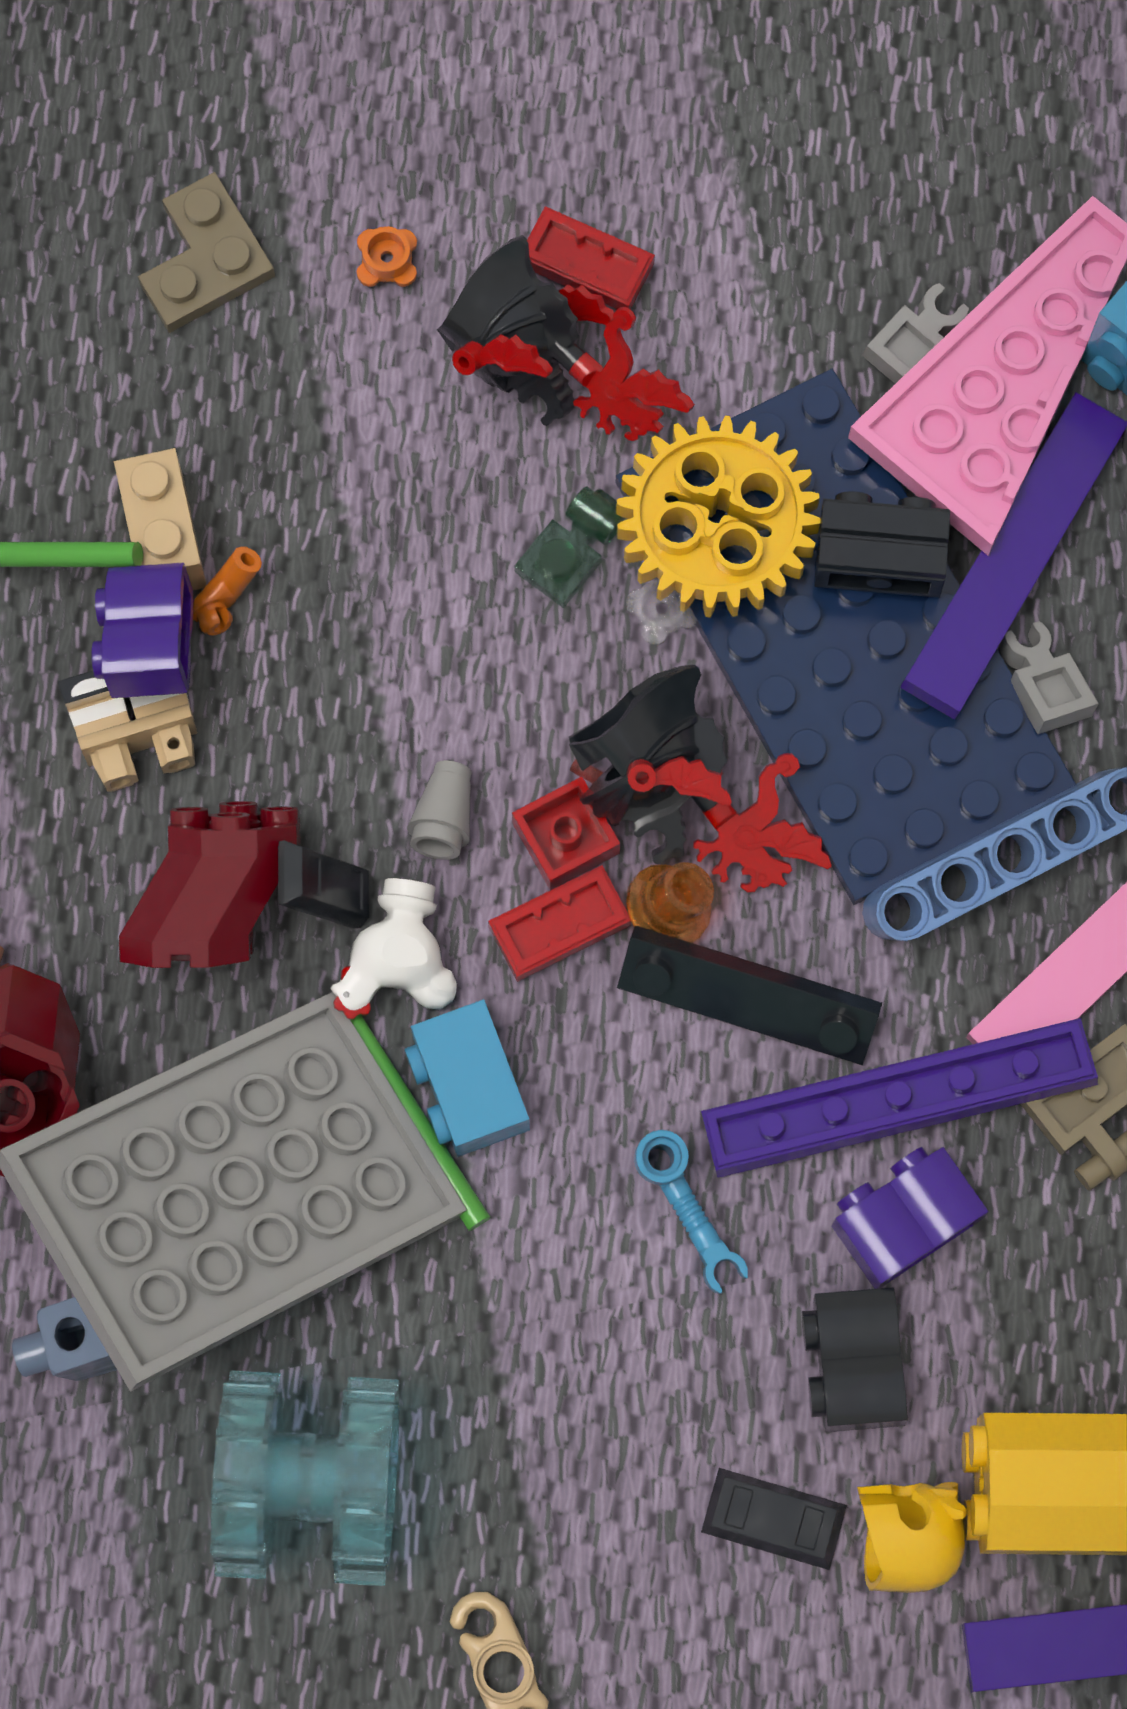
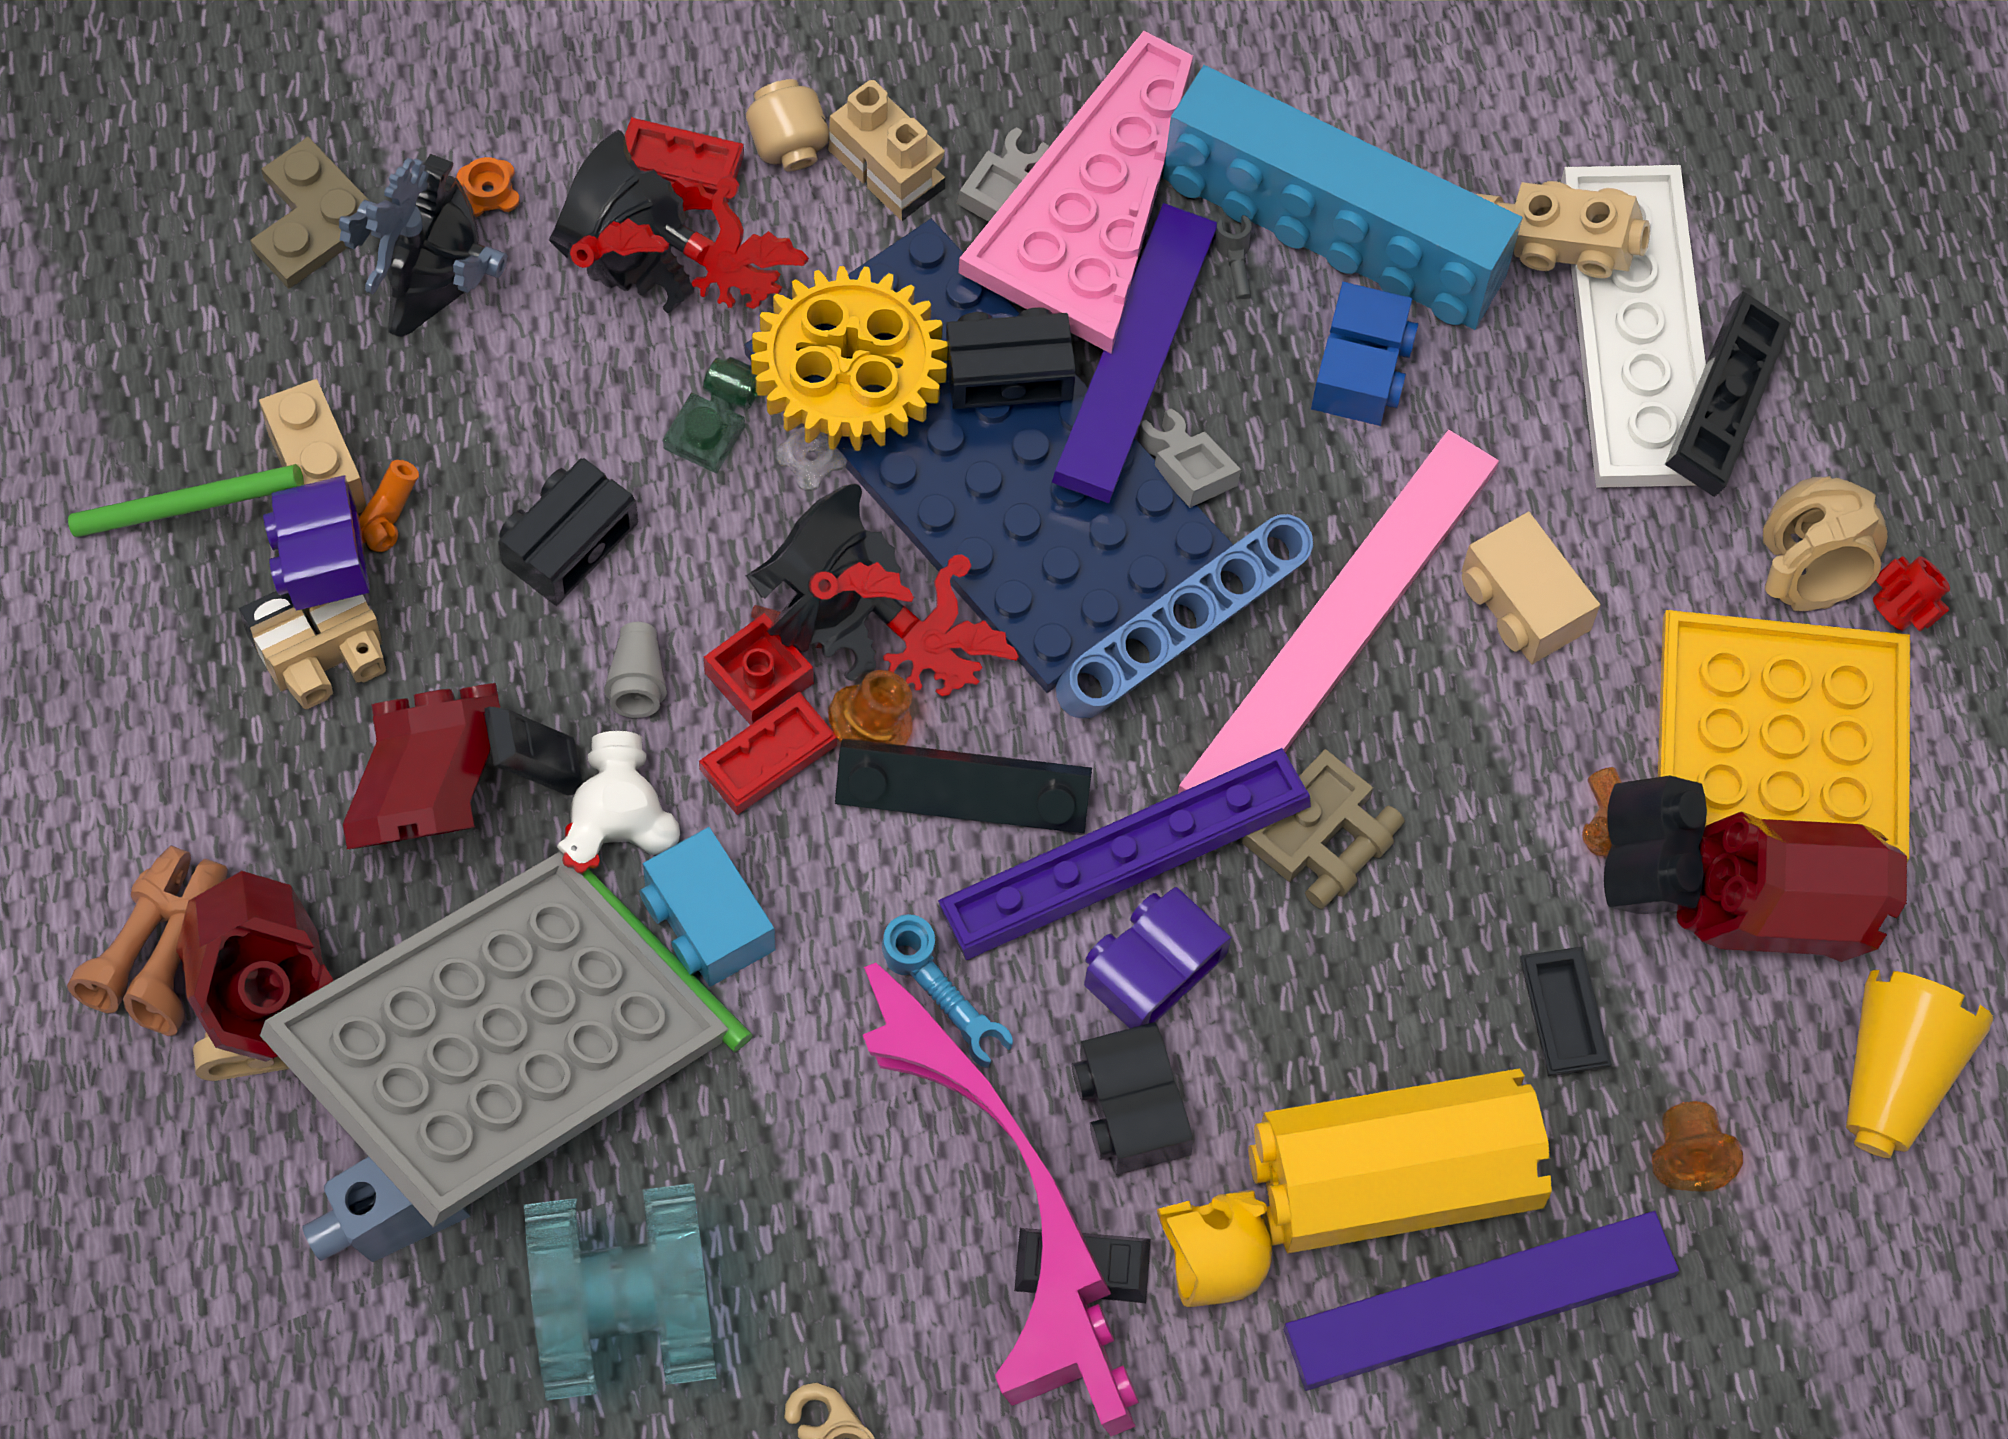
camera: 15 degrees left, 10 degrees down
(308, 316) = (425, 242): none -> helmet
(400, 648) = (567, 530): none -> black brick
(703, 241) = (787, 124): none -> tan head
(739, 1592) = (1061, 1333): none -> dark pink slope
(800, 288) = (886, 150): none -> tan hips

